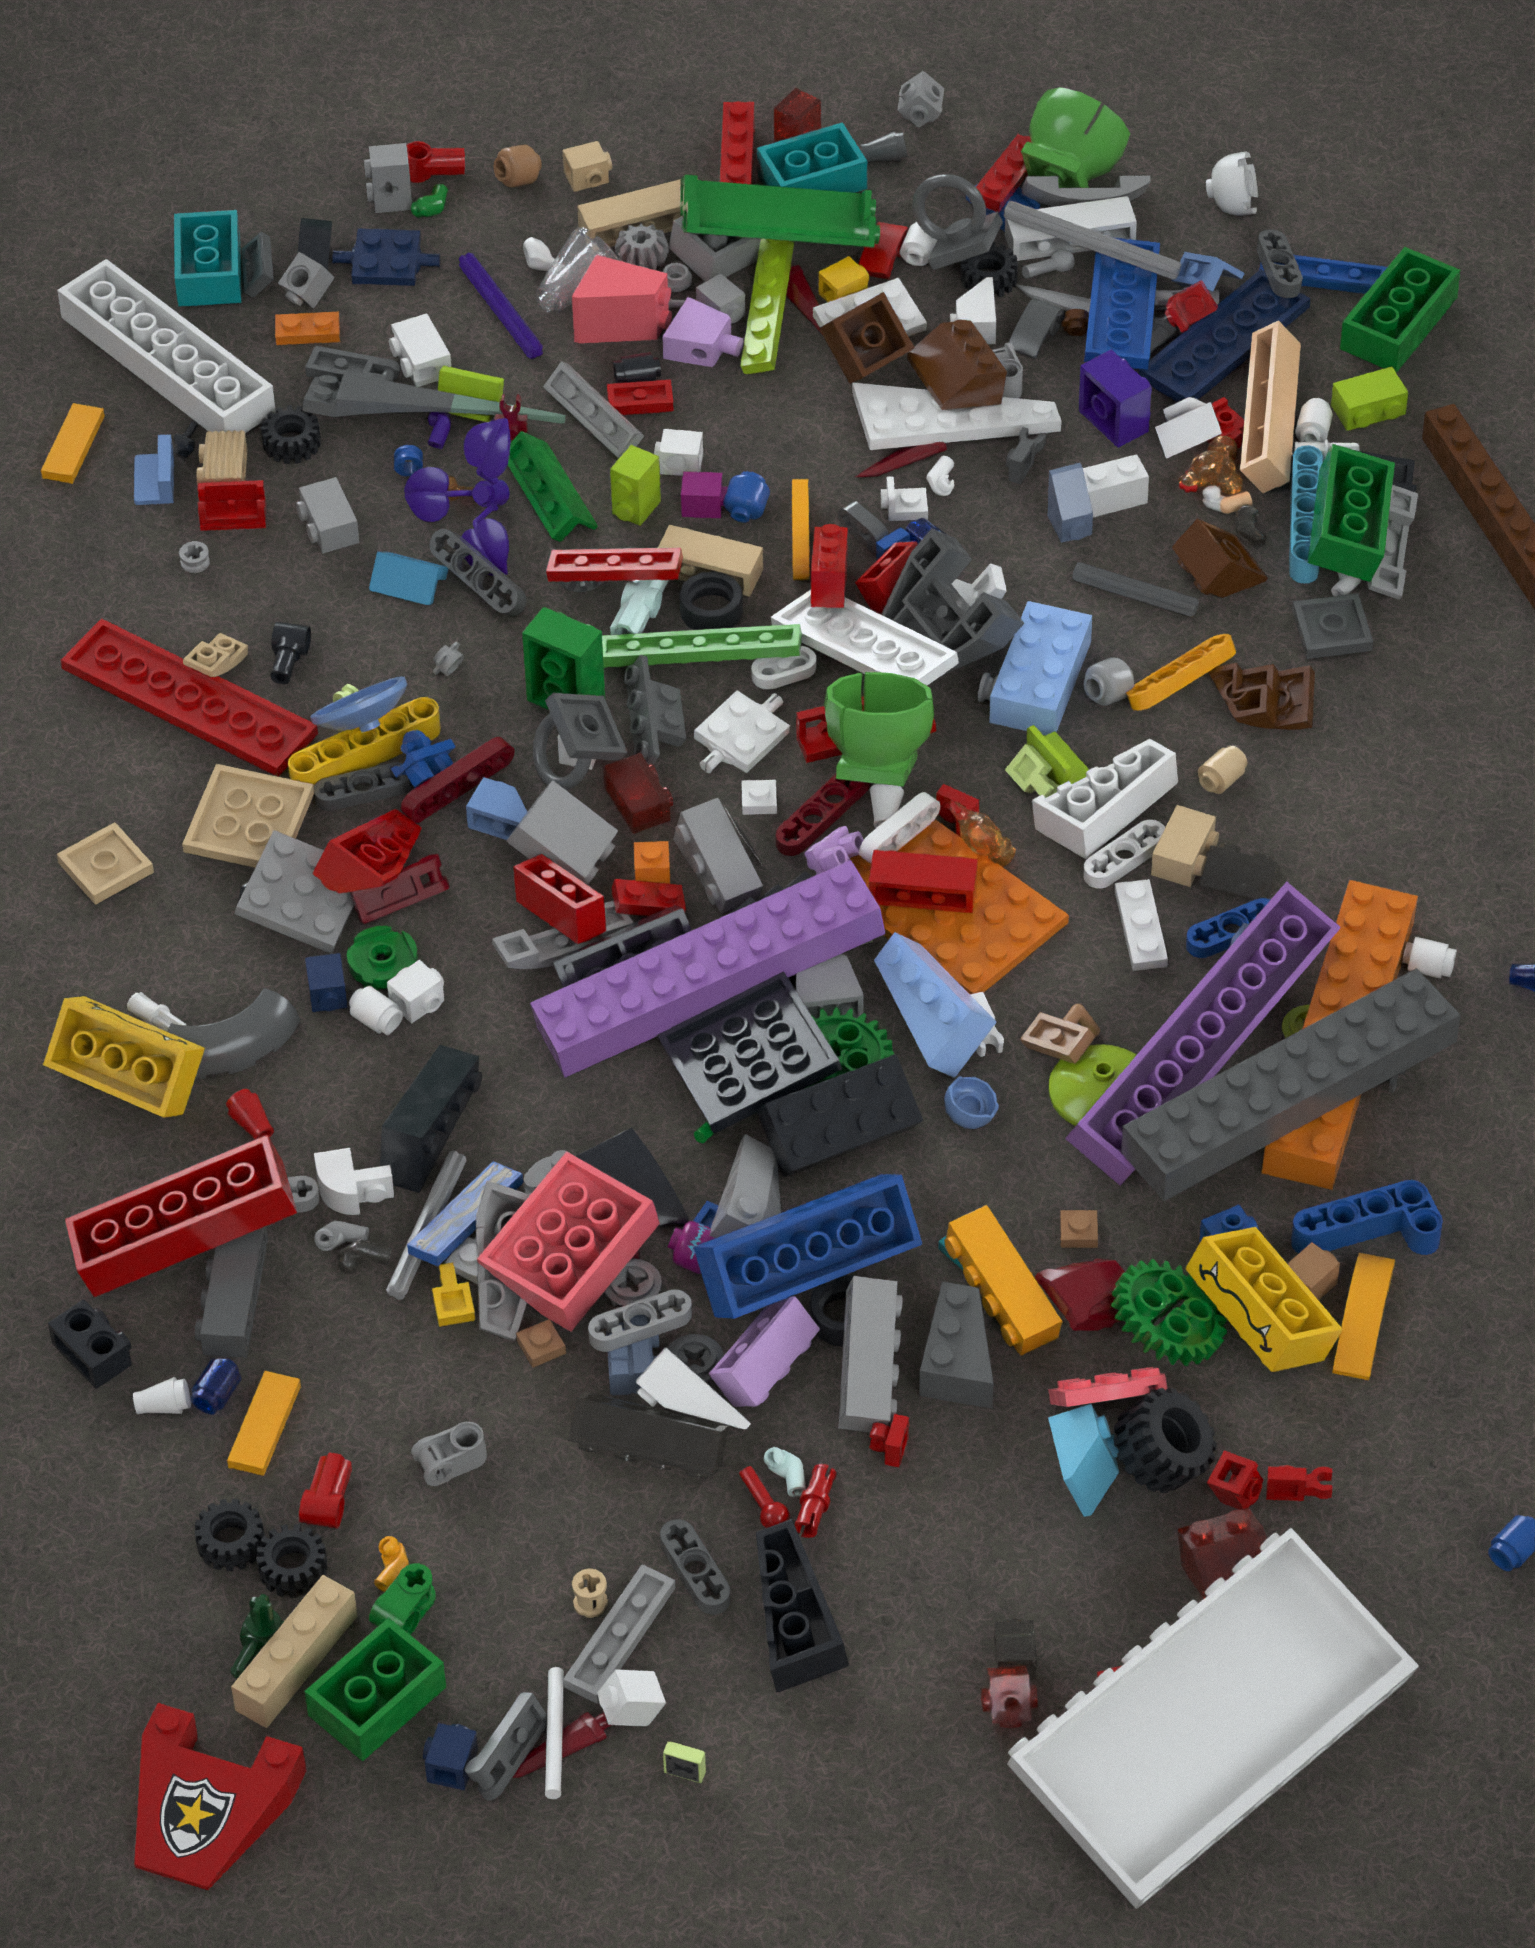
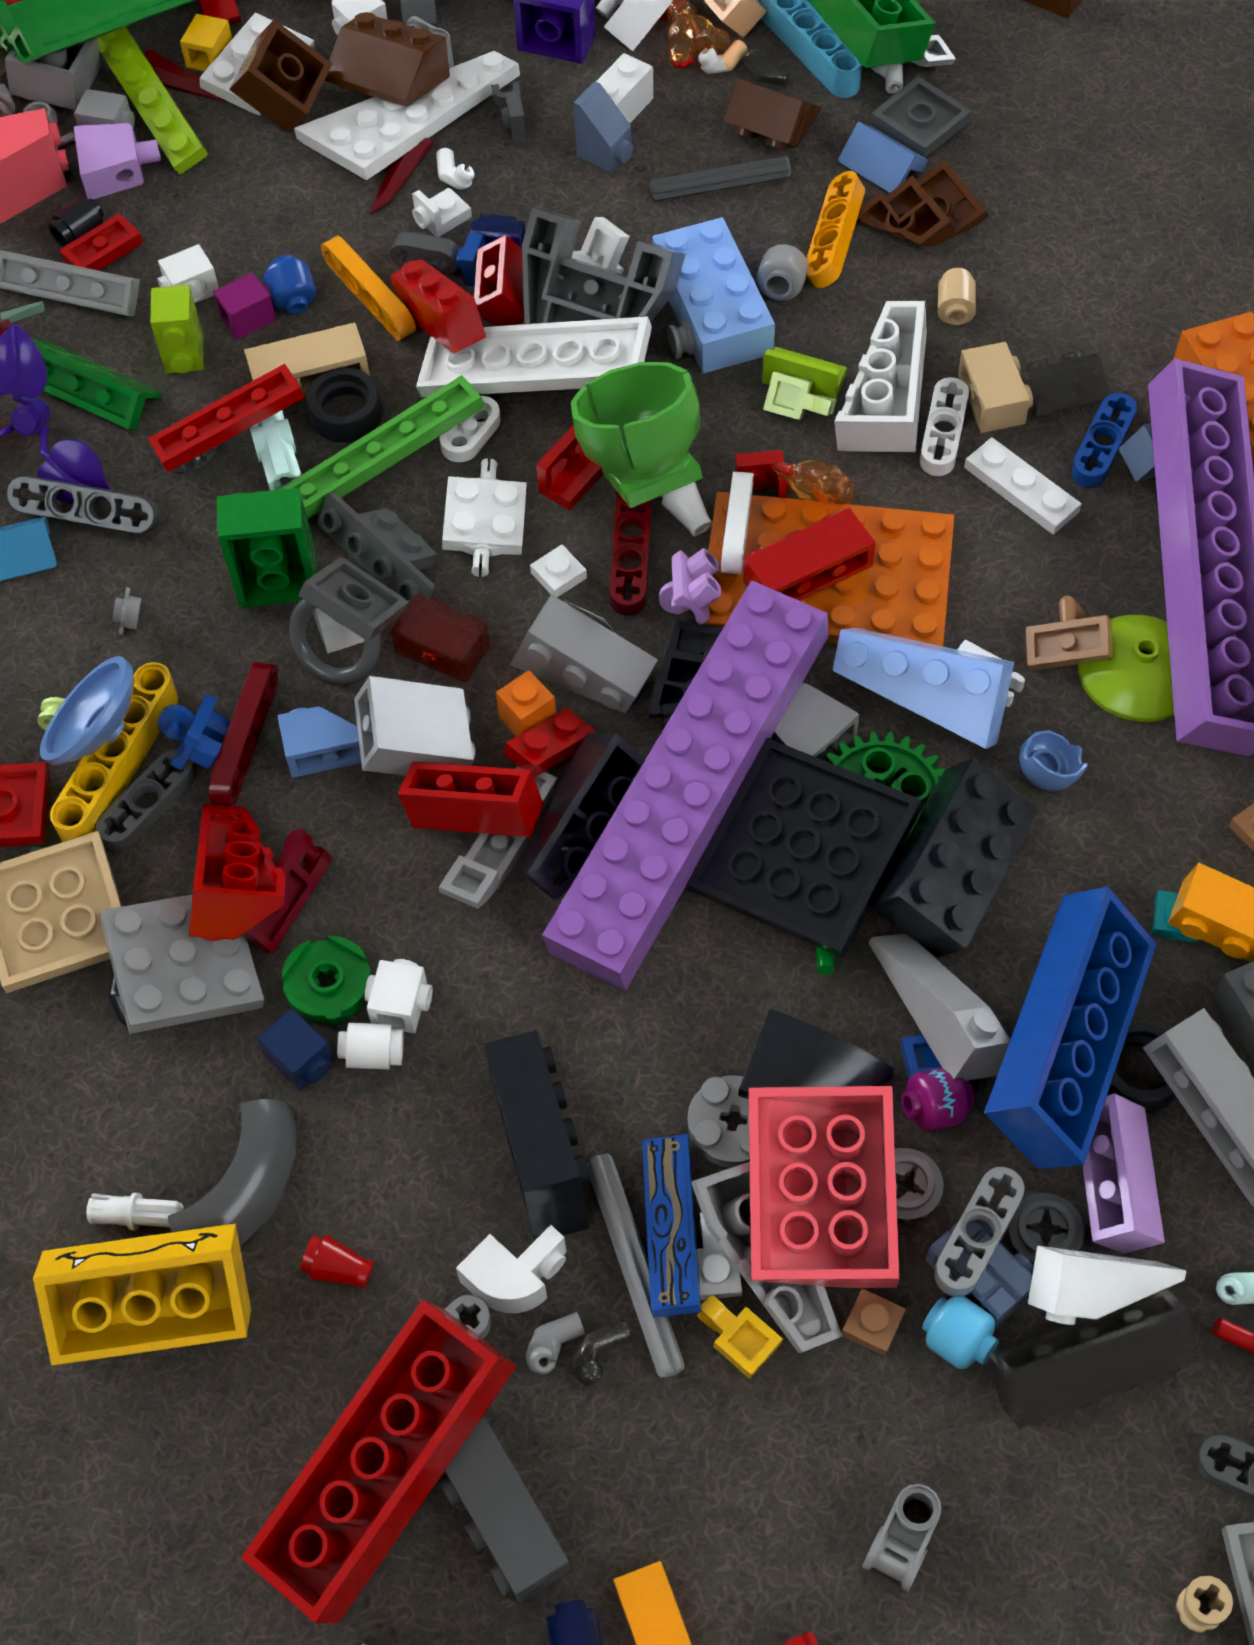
camera: 35 degrees left, 10 degrees up
(582, 1370) = (960, 1332): none -> medium azure head
(1273, 637) = (879, 157): none -> medium blue panel

